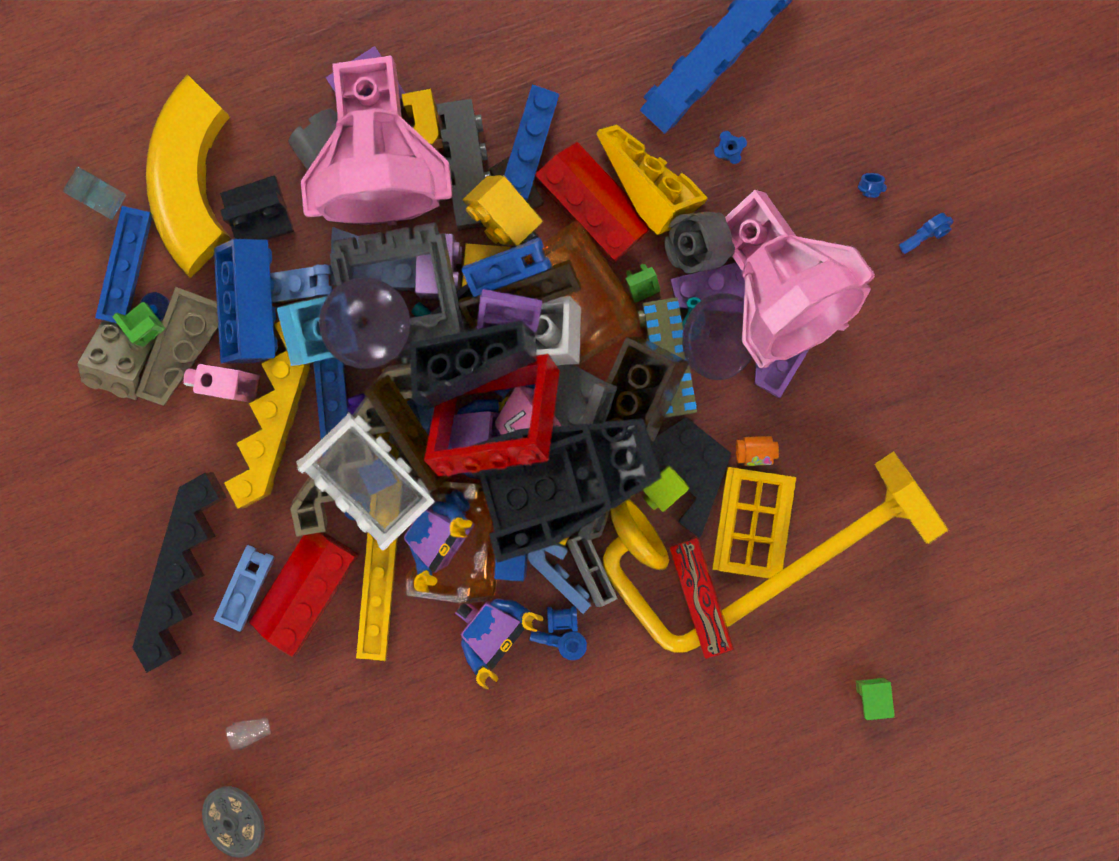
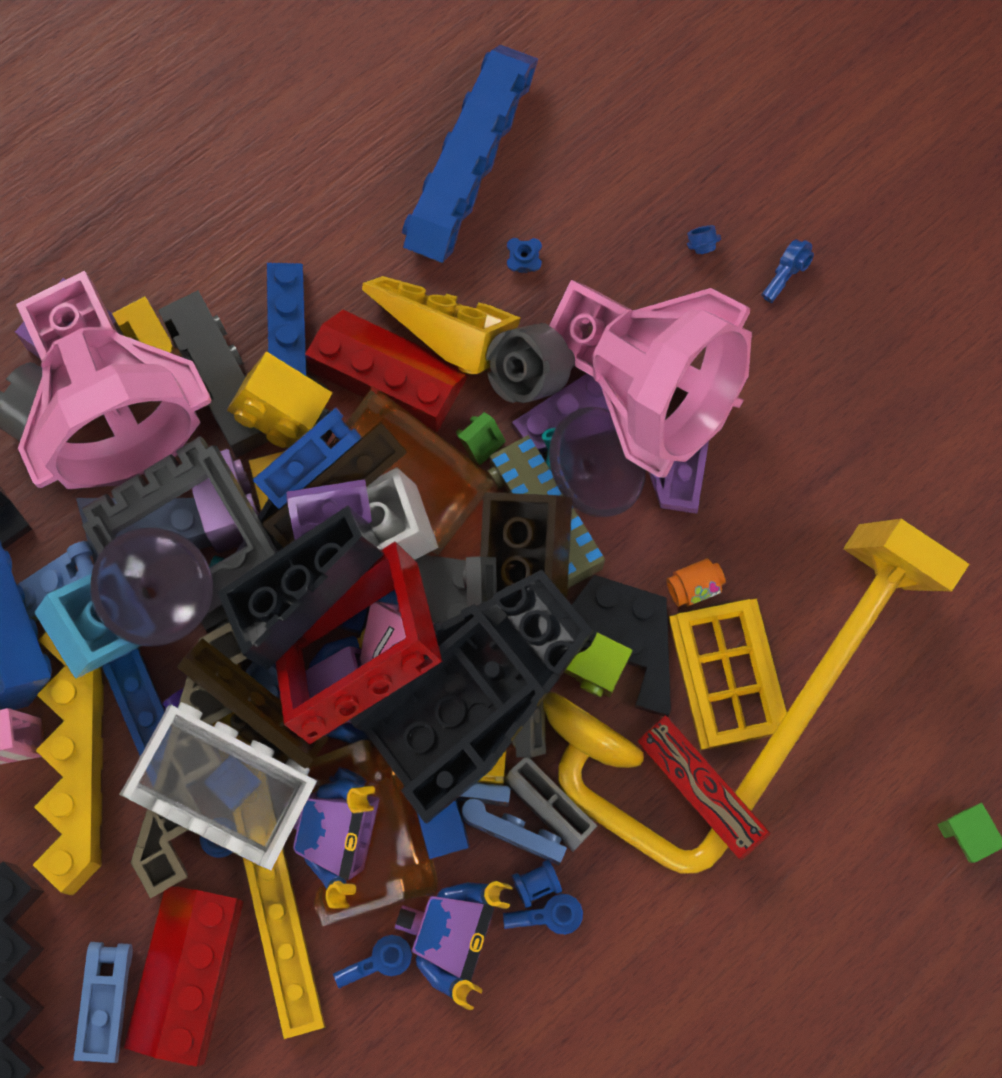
camera: 25 degrees left, 15 degrees down
(445, 630) = (389, 956): none -> blue plate

